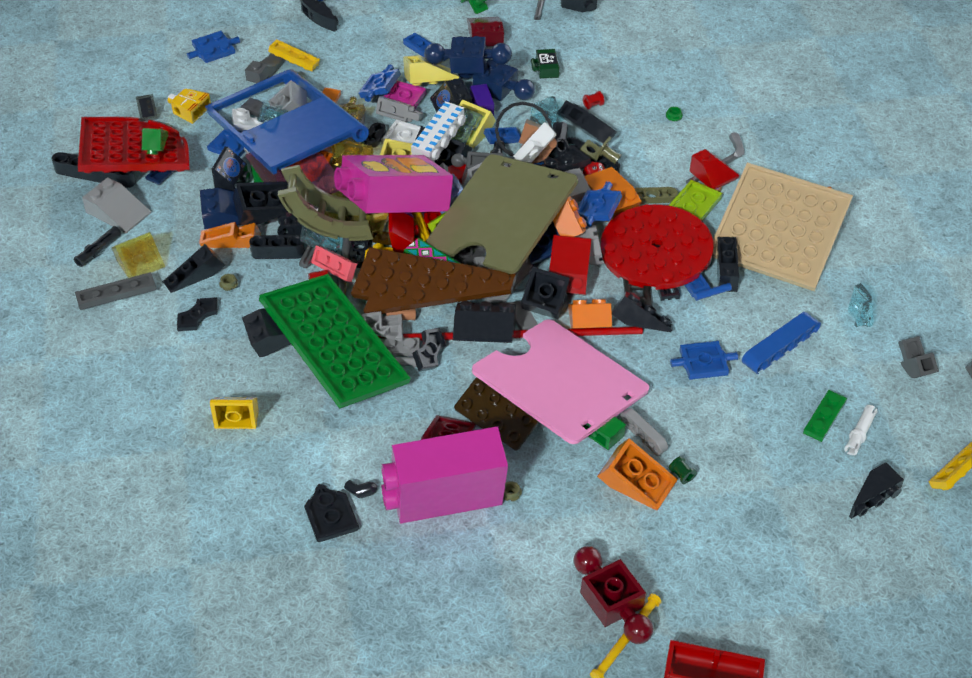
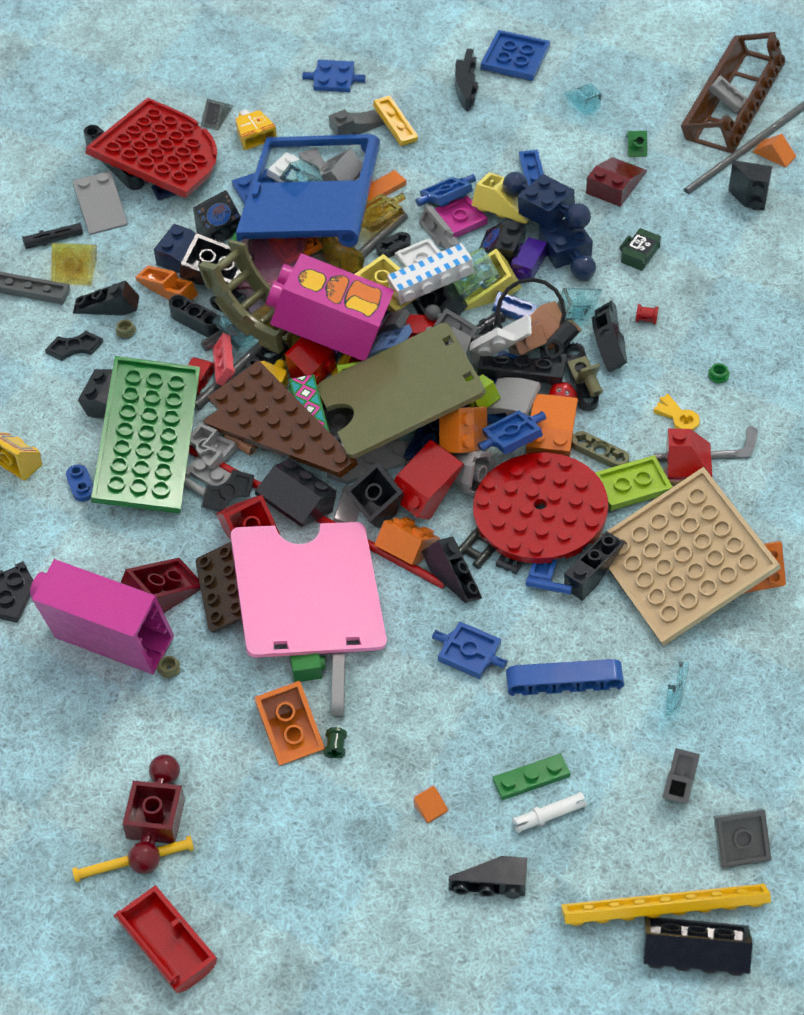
camera: 40 degrees right, 5 degrees up
(153, 140) = (175, 152): green slope -> none
(304, 405) = (79, 481): none -> blue plate
(460, 358) = (246, 513): none -> red slope
(682, 151) = (681, 418): none -> yellow piece
(784, 472) = (430, 804): none -> orange slope

